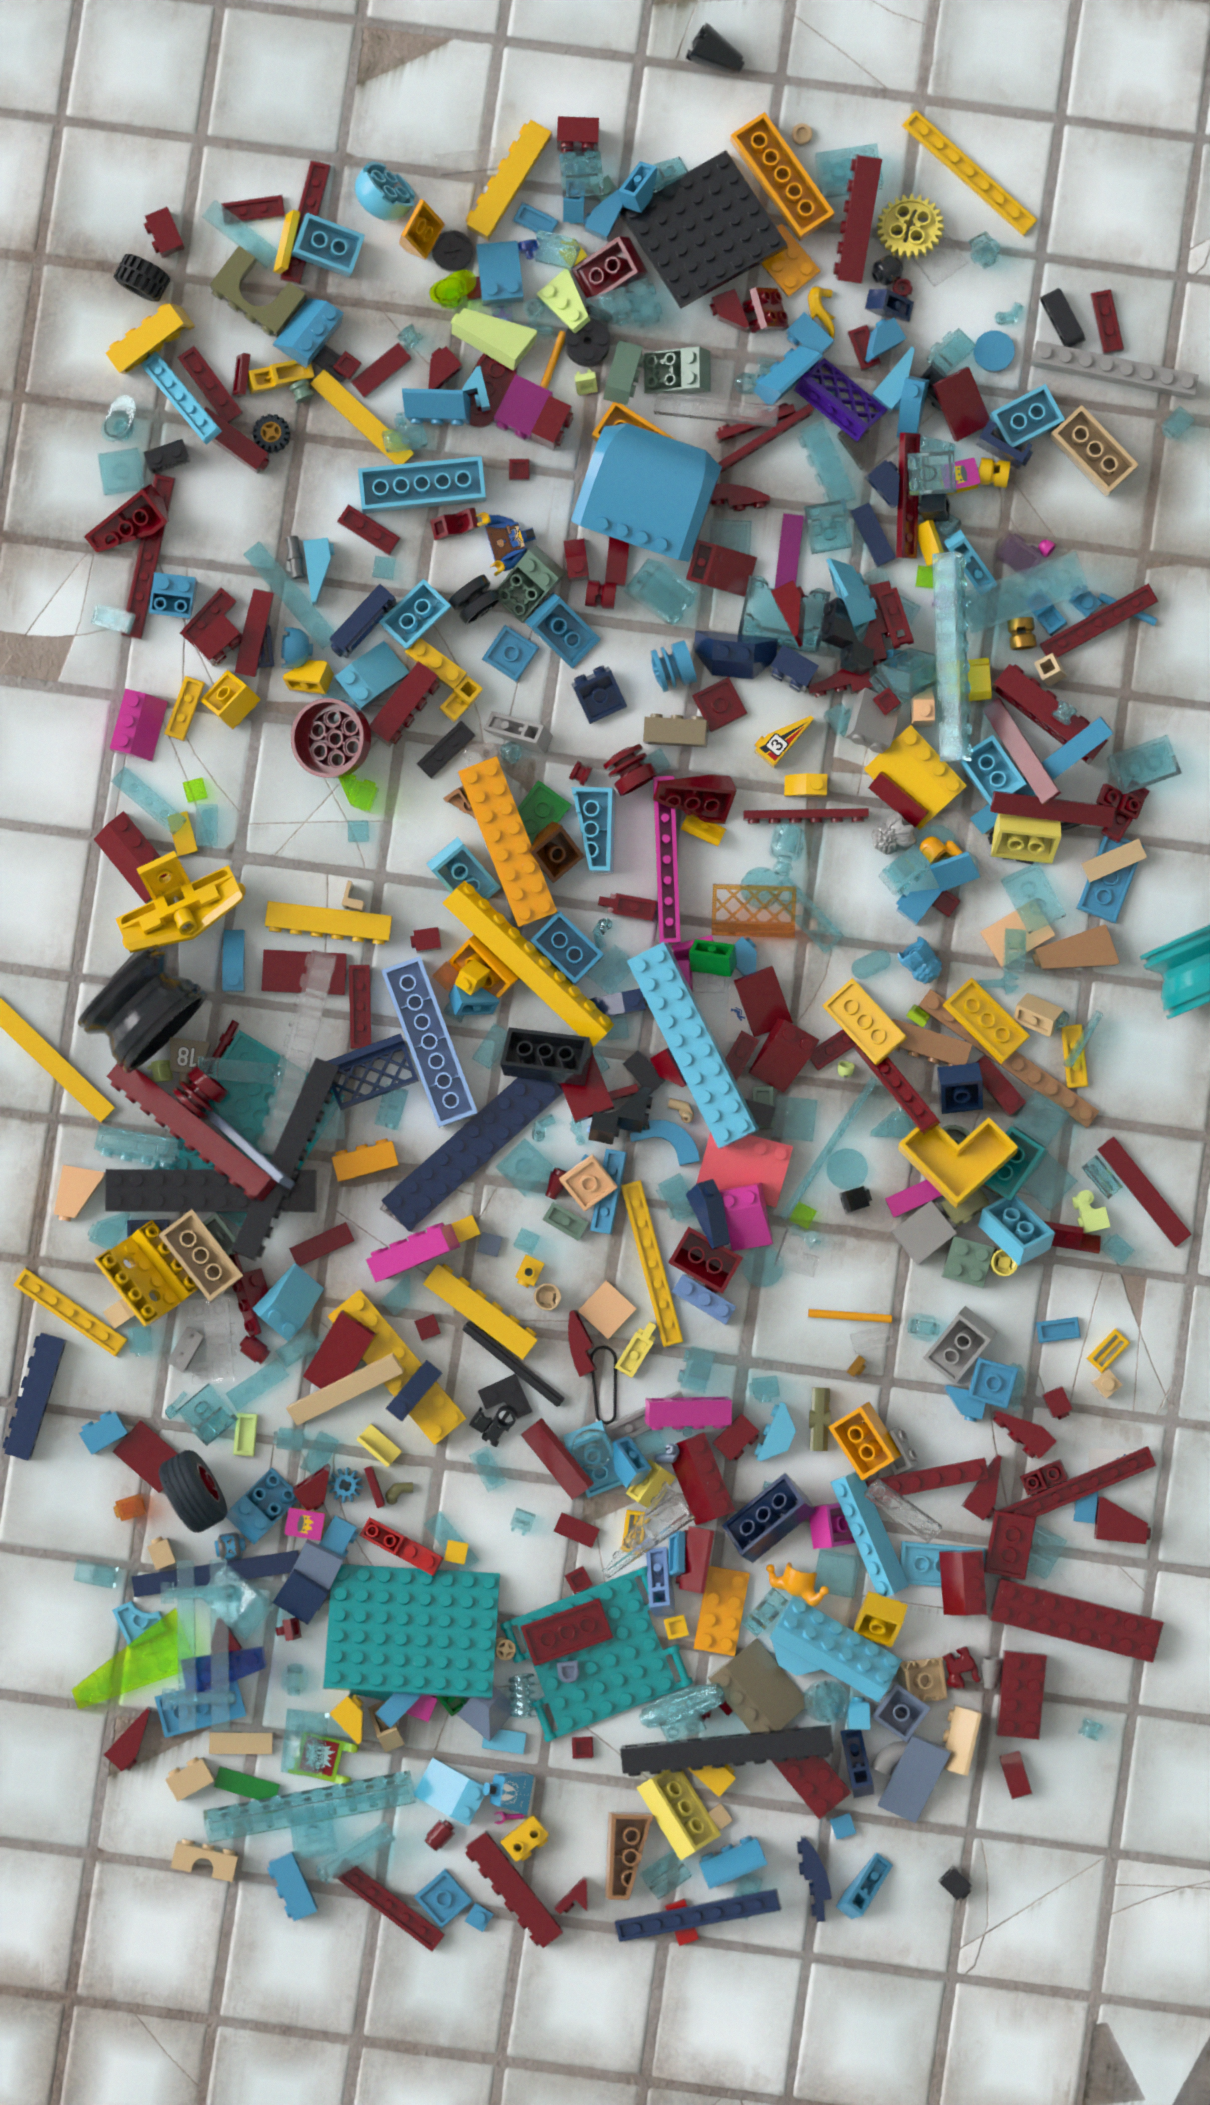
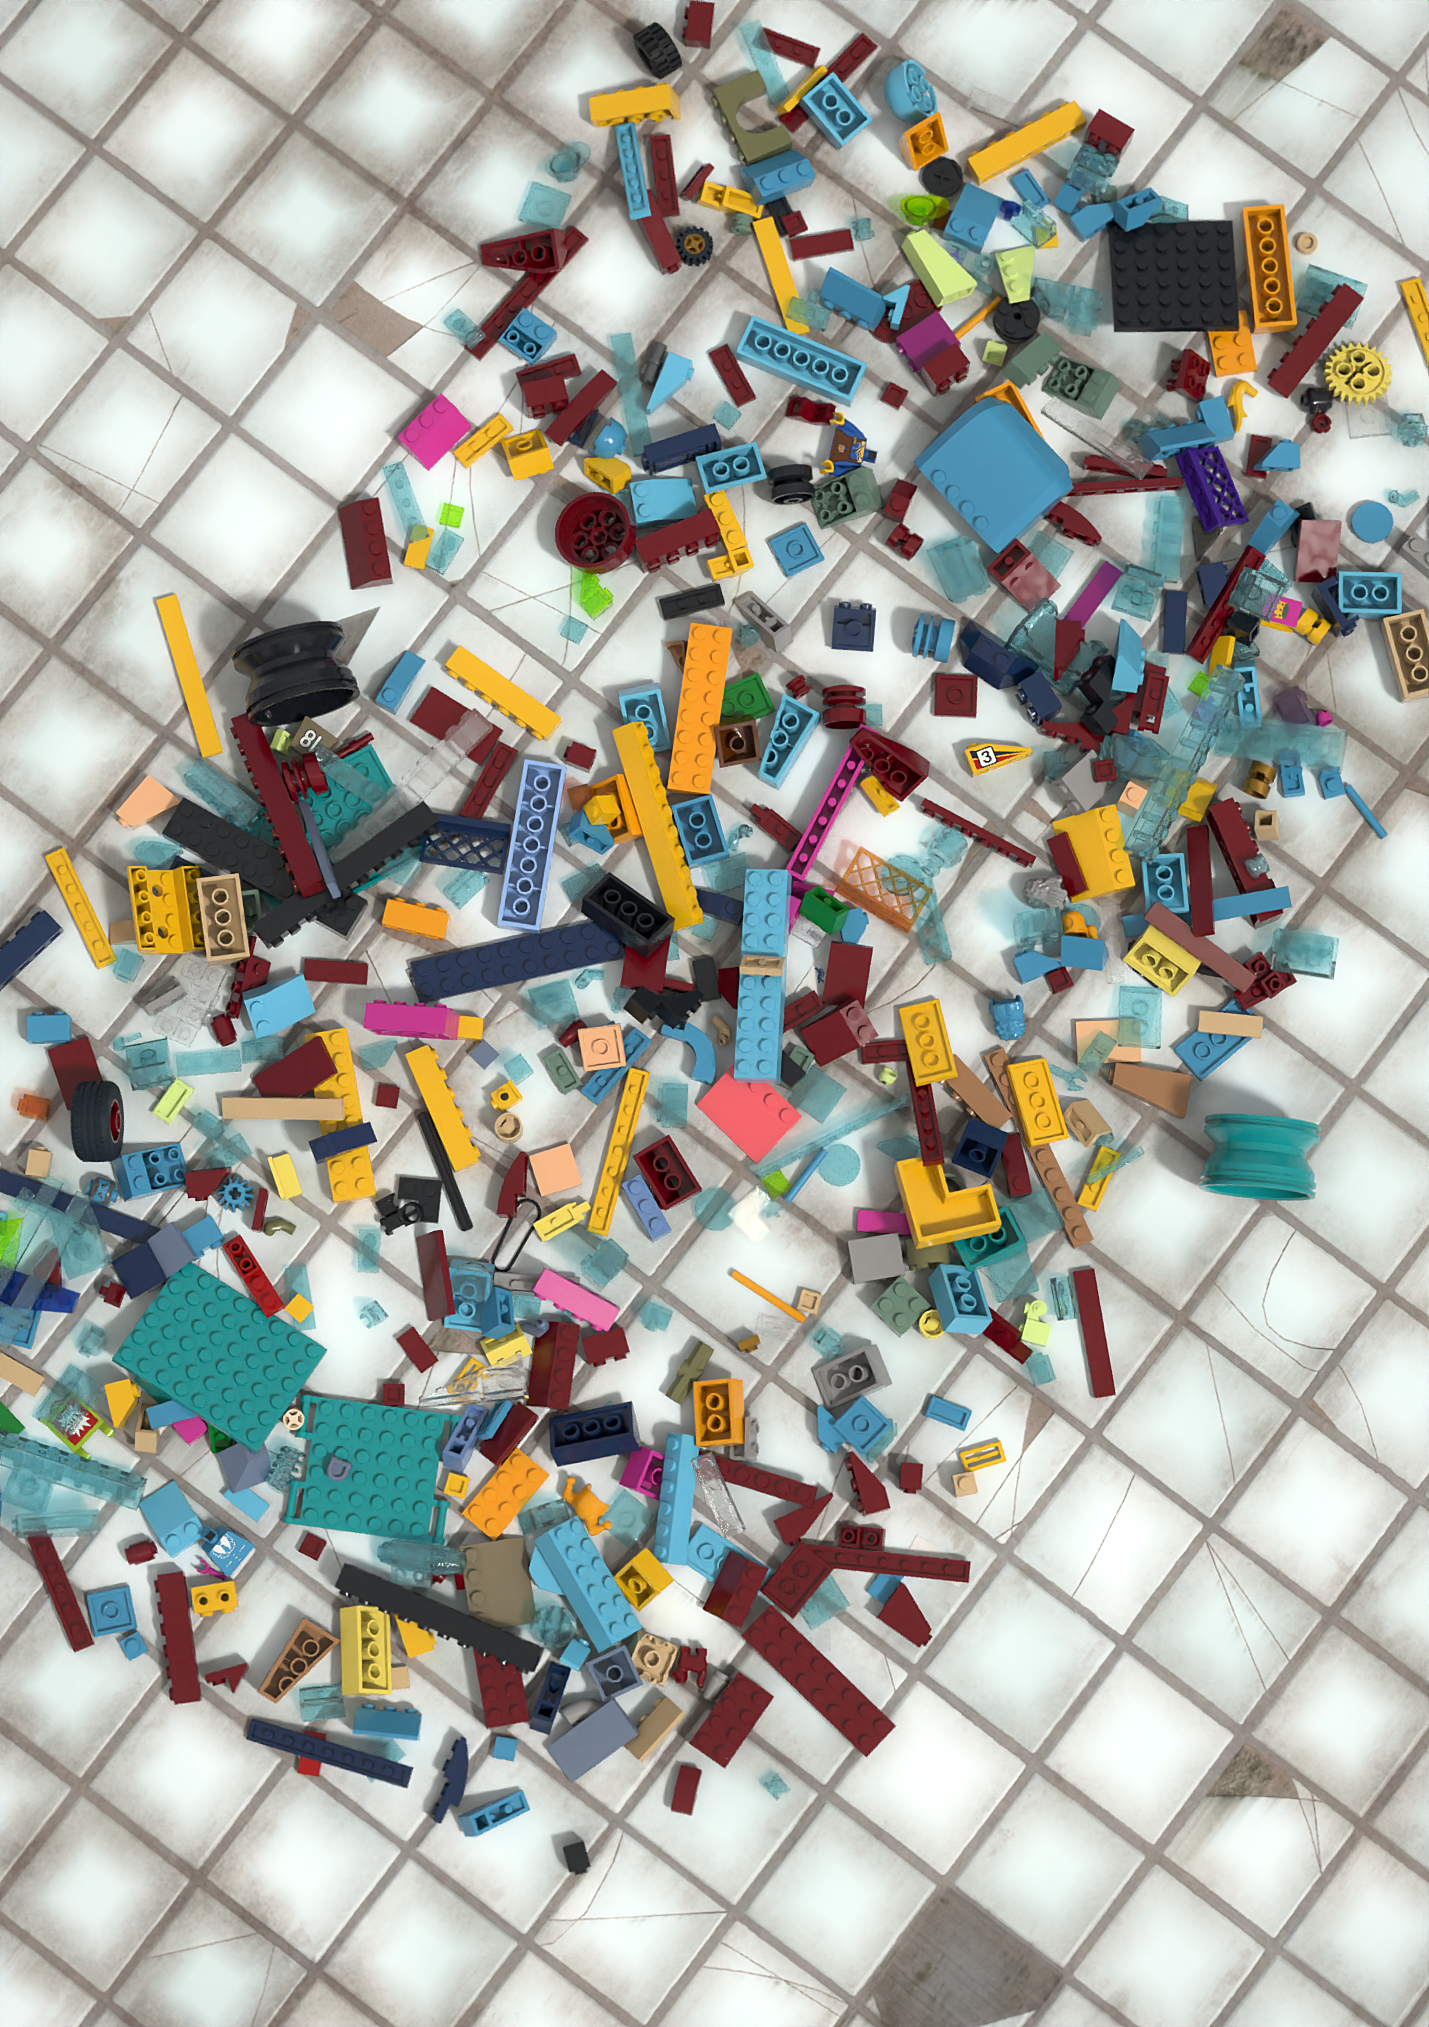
camera: 25 degrees right, 5 degrees down
(166, 456) = (591, 216): black brick -> none
(178, 906) = (379, 605): yellow piece -> none
(305, 1523) = (180, 1208): dark pink piece -> none
(349, 903) = (530, 683): tan panel -> none
(442, 367) = (877, 271): dark red slope -> none
(562, 630) = (853, 554): dark azure slope -> none
(566, 1632) = (356, 1434): dark red tile -> none
(610, 268) = (1073, 264): dark red slope -> none
(617, 561) = (936, 521): dark red tile -> none
(676, 731) = (903, 696): dark tan brick -> none
(689, 1038) = (762, 965): none -> tan plate
(710, 1212) = (695, 1130): dark blue slope -> none
(714, 51) = (1269, 130): black cone -> none
(729, 310) = (1157, 359): dark red slope -> none
(746, 1216) = (724, 1155): dark pink slope -> none
(778, 1434) = (645, 1364): medium azure slope -> none
(806, 785) = (993, 807): yellow slope -> none
(823, 1194) = (805, 1175): none -> dark azure bar
(855, 1199) = (831, 1194): black slope -> none
(871, 964) = (962, 996): clear light blue tile -> none
(886, 1301) = (809, 1301): none -> tan tile
(889, 304) = (1301, 430): dark blue slope -> none
(891, 388) = (1259, 504): medium azure slope -> none
(918, 1015) = (978, 1064): lime tile -> none
(950, 352) = (1332, 500): clear light blue brick -> none
(1100, 622) = (1335, 808): dark red tile -> none

